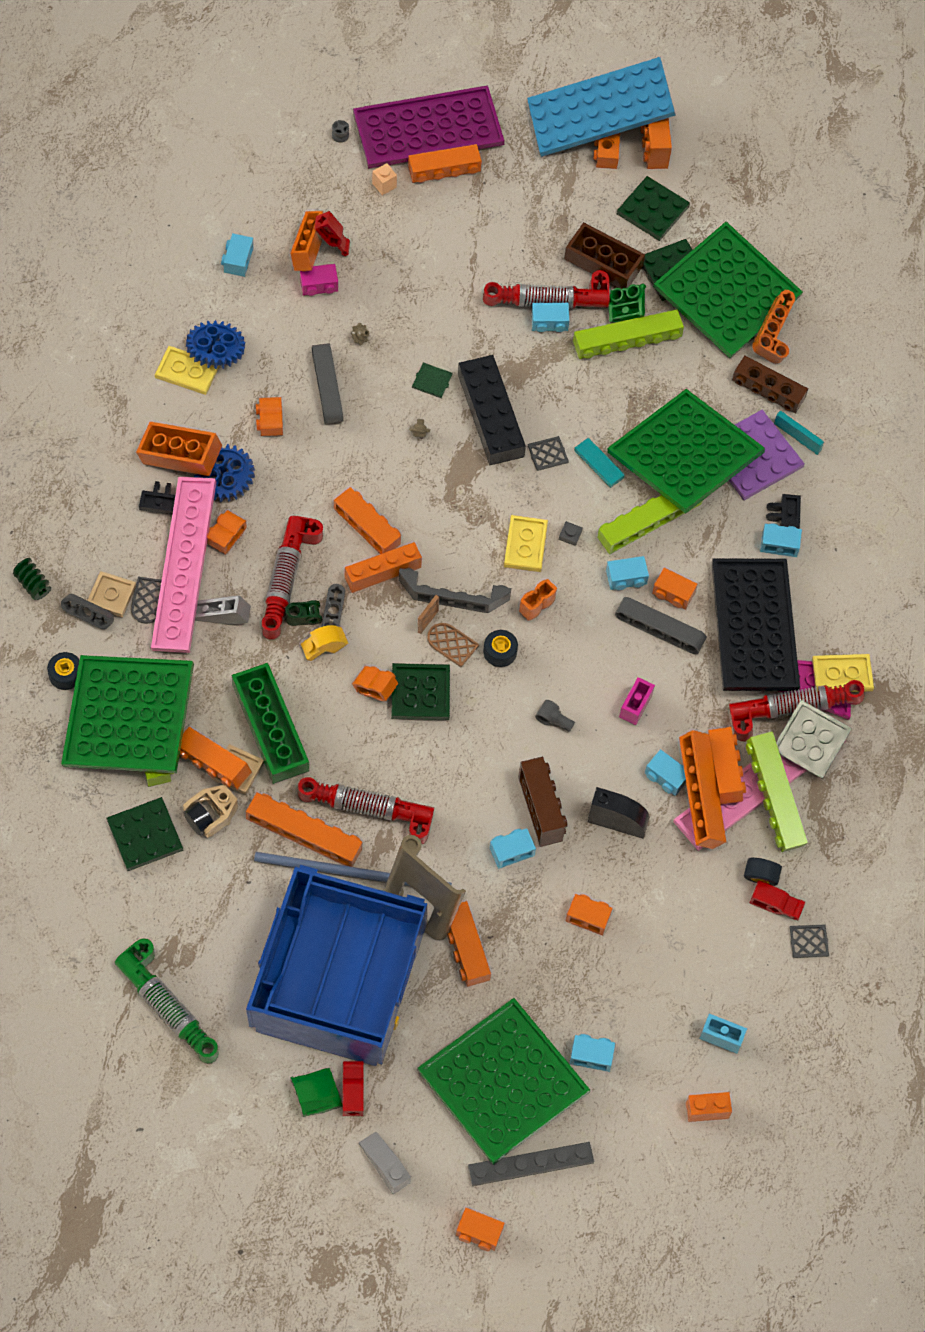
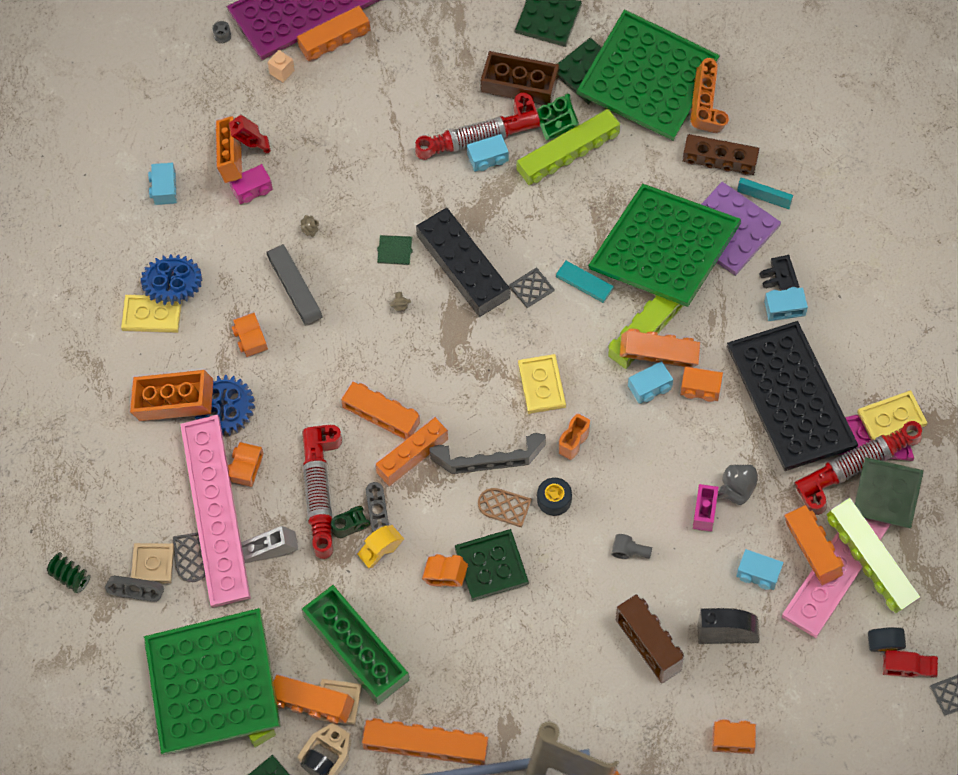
camera: 10 degrees left, 0 degrees up
(63, 678) = (134, 663): black wheel -> none
(157, 501) = (167, 455): black hinge -> none
(380, 805) = (475, 695): red piece -> none
(428, 614) = (473, 484): medium nougat window -> none
(512, 847) = (635, 694): medium azure brick -> none
(570, 533) = (581, 360): dark grey plate -> none
(645, 543) = (659, 348): none -> orange brick
(660, 625) = (701, 424): dark grey beam -> none
(676, 688) = (738, 483): none -> dark grey piece
(702, 789) = (801, 577): orange brick -> none

